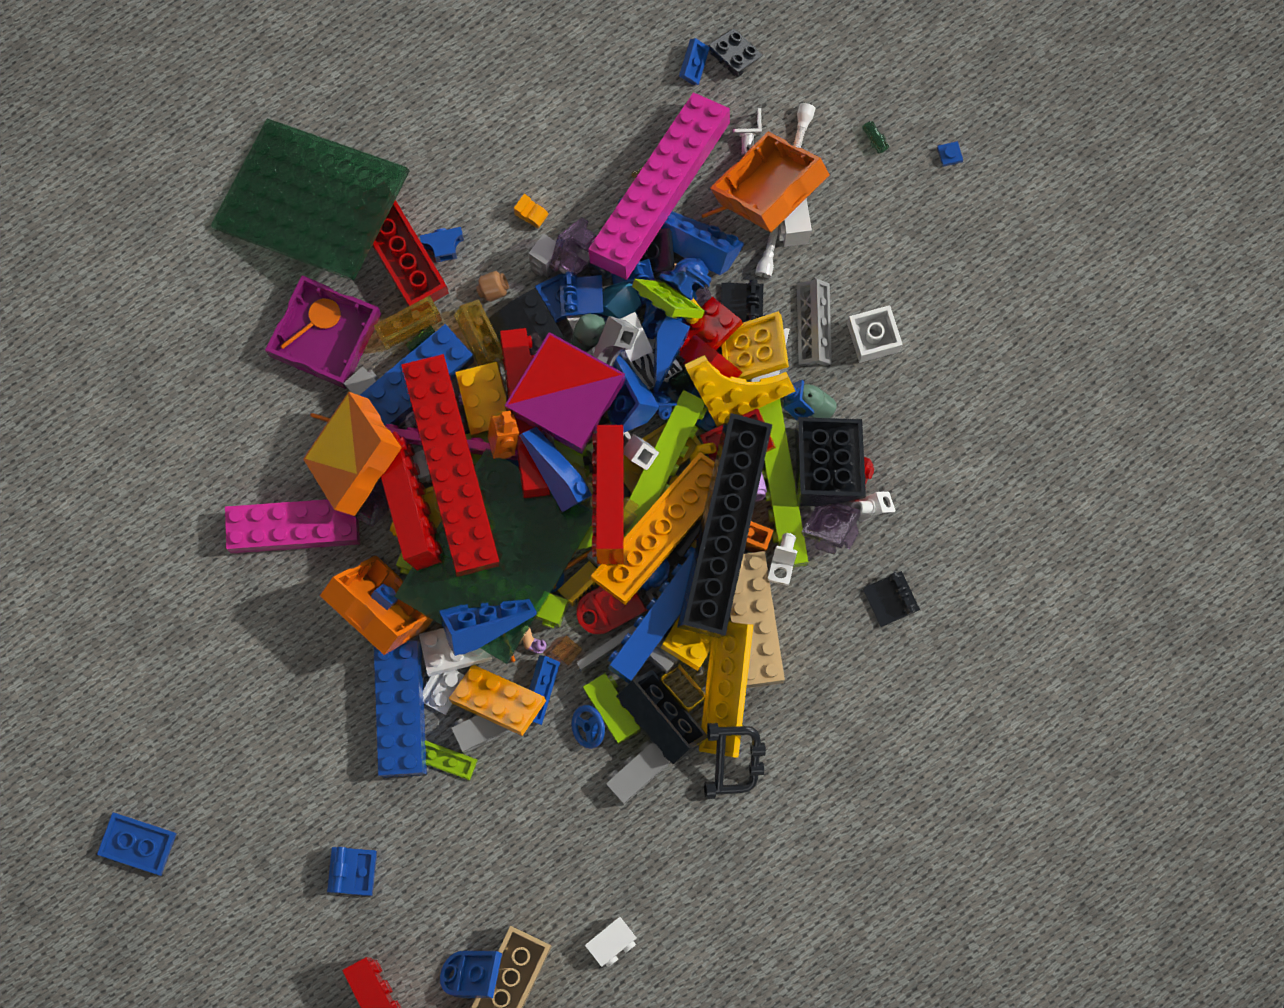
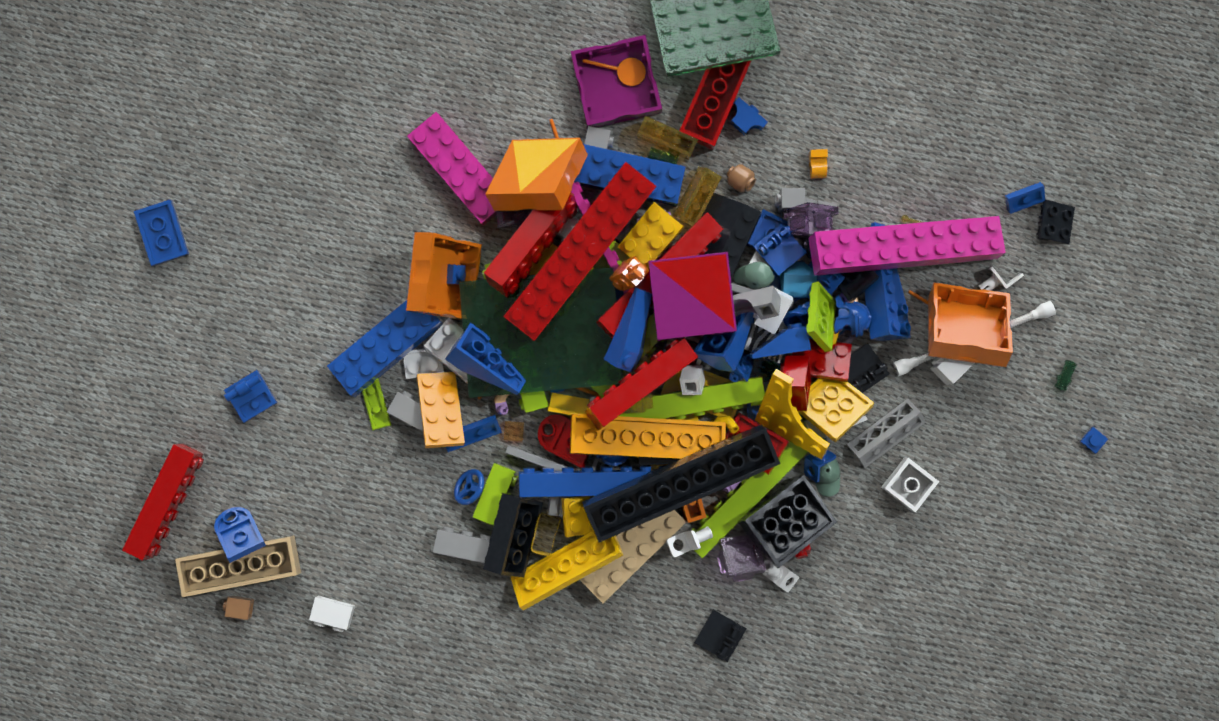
camera: 55 degrees right, 10 degrees up
(756, 768) = (526, 626): black bar -> none

